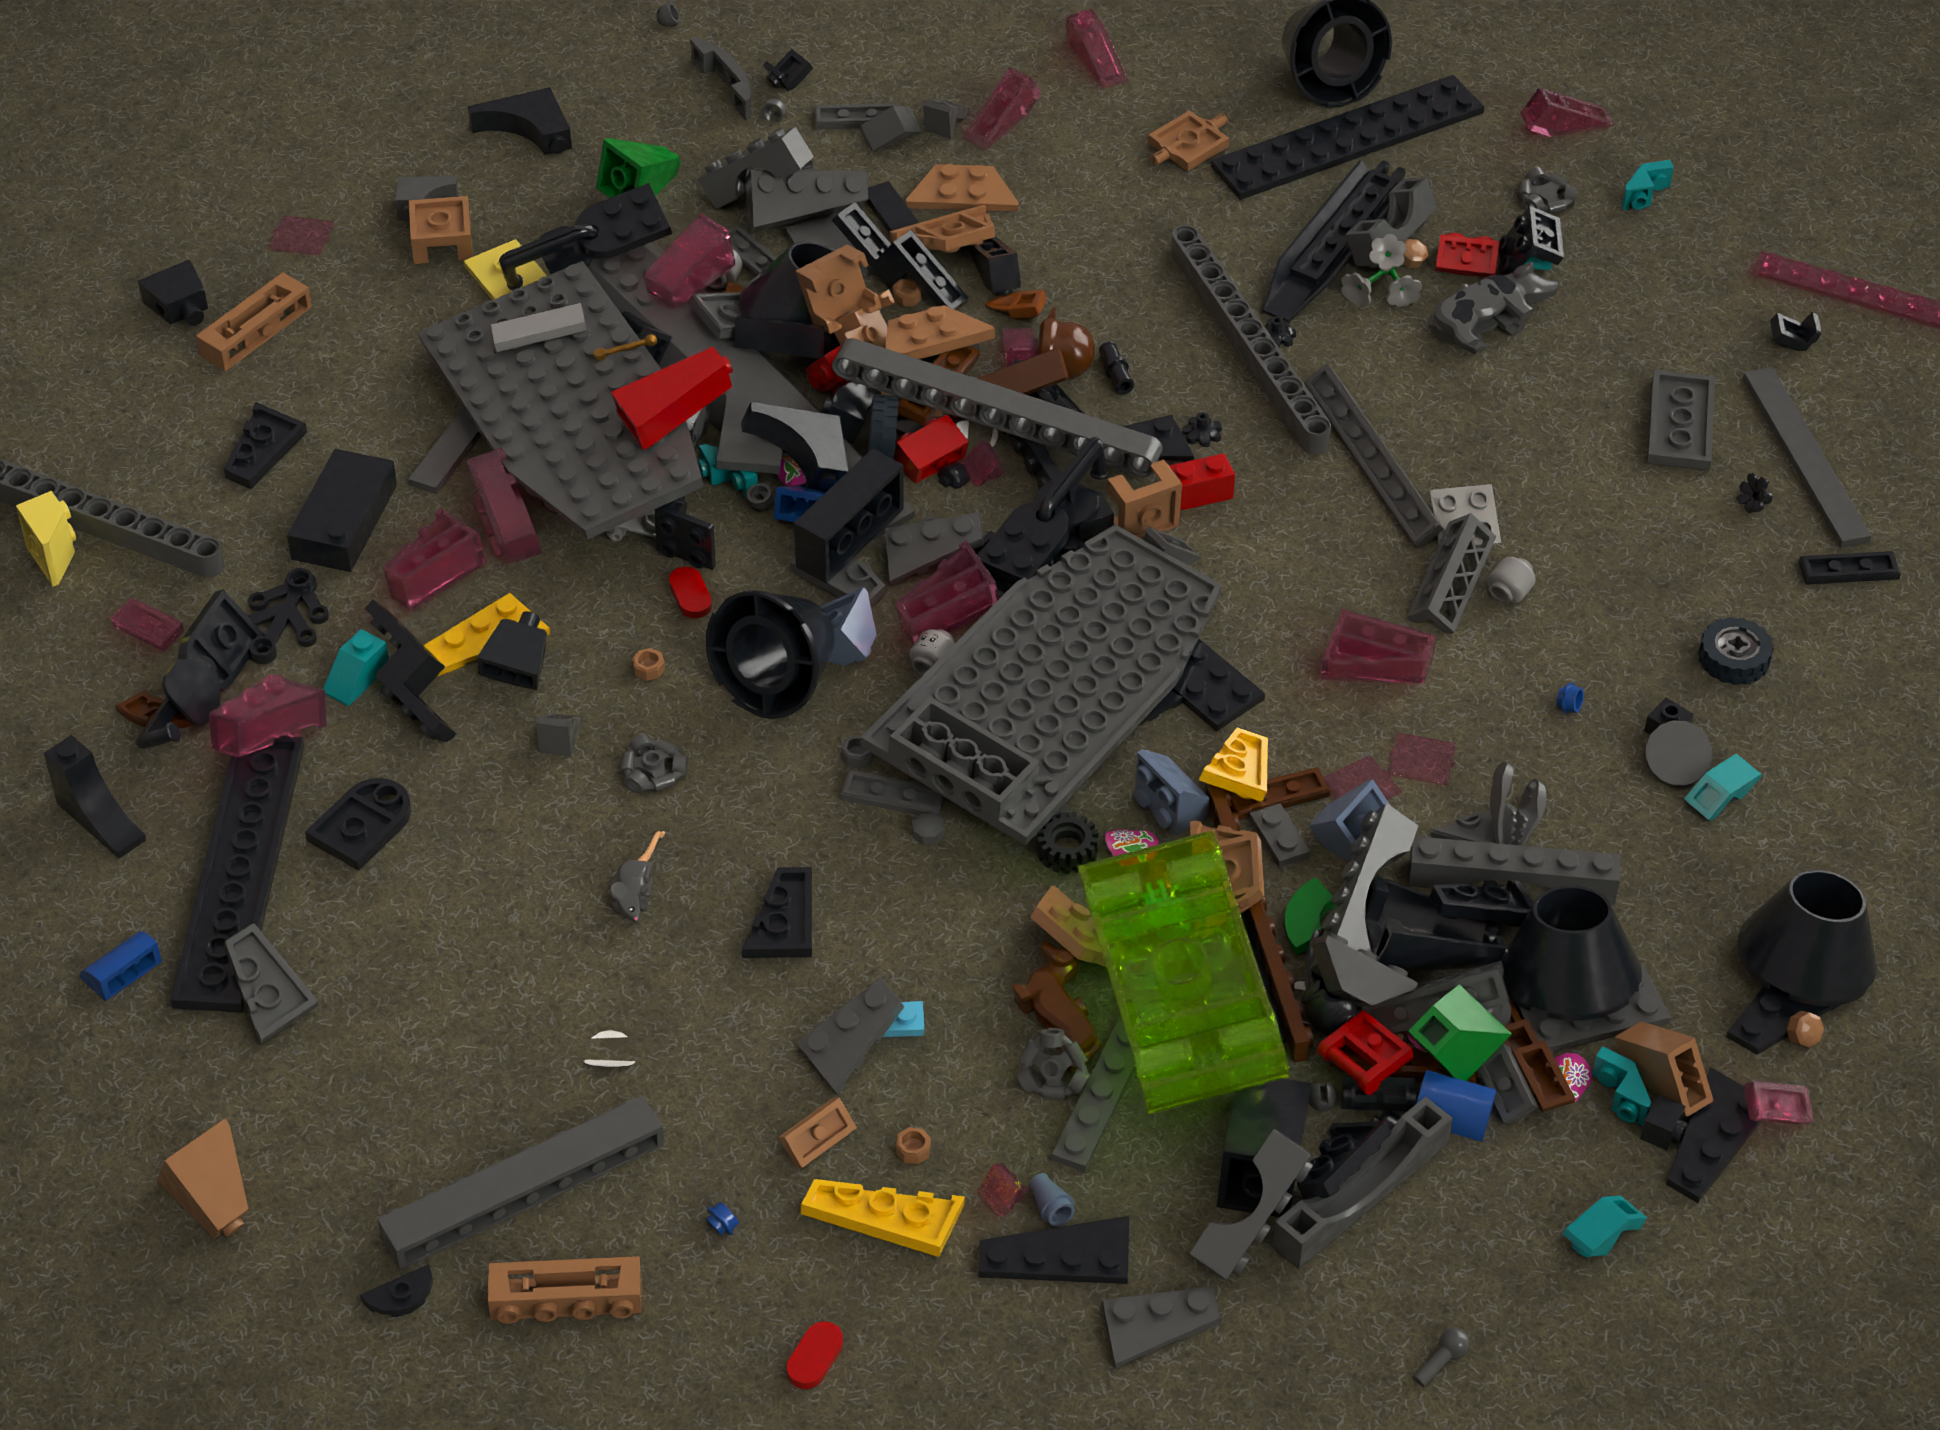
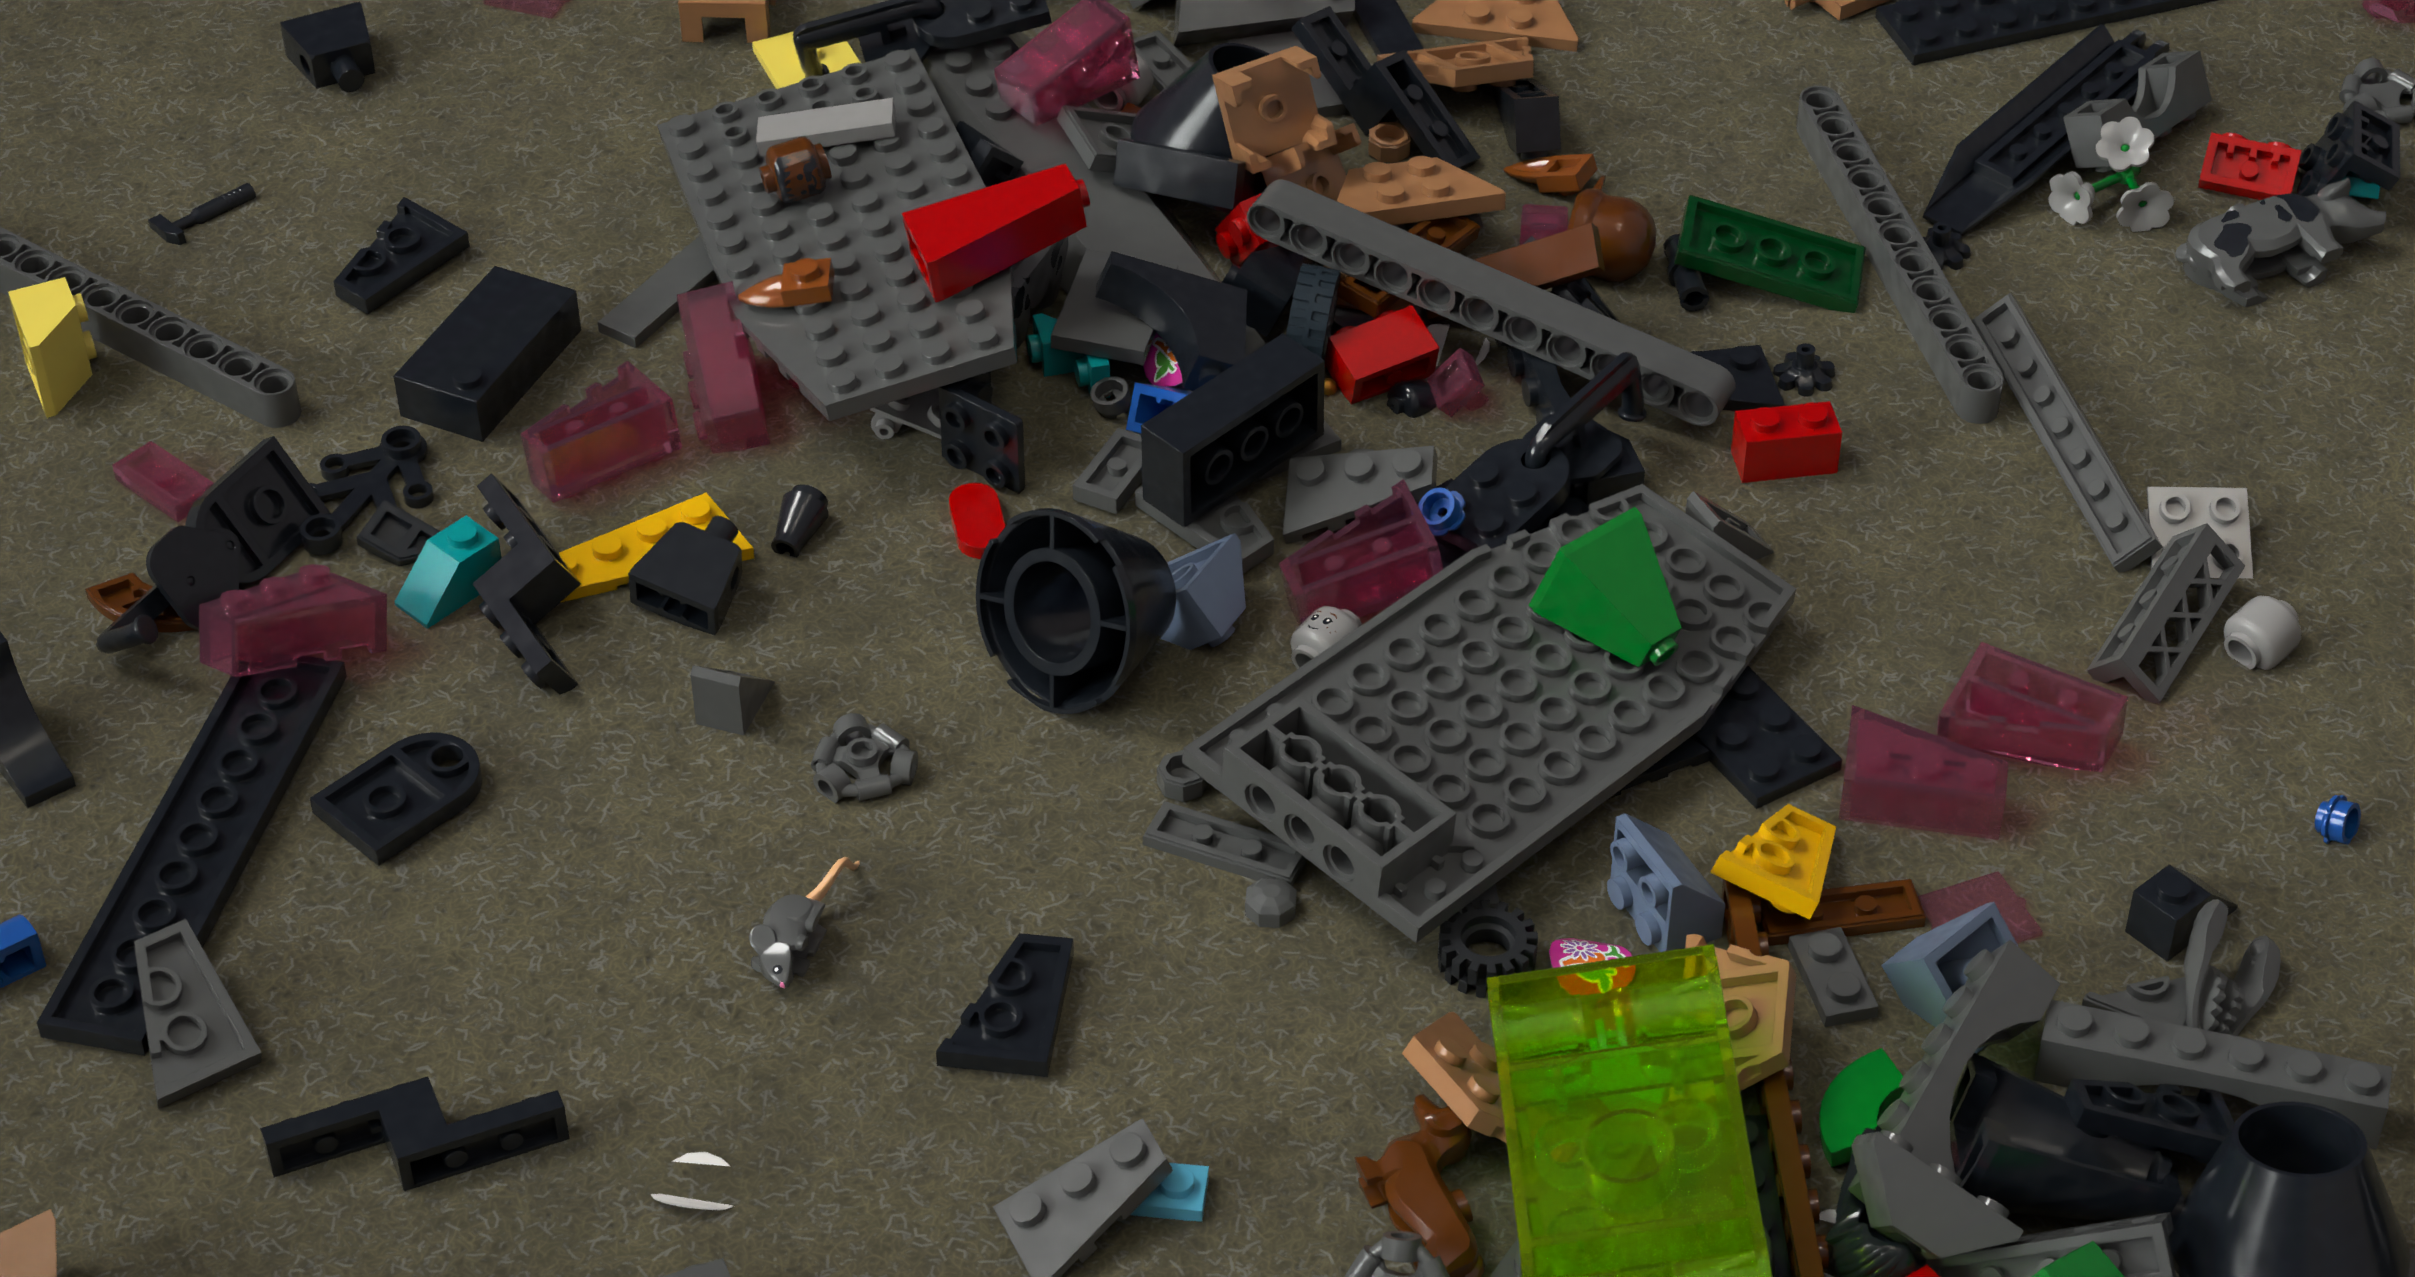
camera: 10 degrees right, 5 degrees down
(101, 443) = (173, 231): none -> black piece
(253, 321) = (431, 91): medium nougat brick -> none
(315, 645) = (395, 535): none -> black tile
(429, 1041) = (415, 1133): none -> black bracket
(527, 362) = (795, 170): none -> reddish brown head
(549, 445) = (800, 284): none -> dark orange plate
(575, 604) = (800, 517): none -> black cone
(601, 354) = (907, 168): pearl gold hinge -> none
(648, 664) = (890, 615): medium nougat tile -> none
(773, 548) = (1112, 473): none -> dark grey plate
(987, 551) = (1437, 501): none -> blue plate
(1112, 604) = (1612, 592): none -> green slope
(1148, 506) = (1703, 461): medium nougat panel -> none
(1169, 350) = (1770, 255): none -> dark green tile
(1314, 702) = (1919, 780): none -> clear pink wedge
(1415, 254) = (2167, 159): medium nougat tile -> none
(1422, 759) = (2083, 886): clear pink piece -> none
(1475, 769) = (2166, 910): none -> black slope

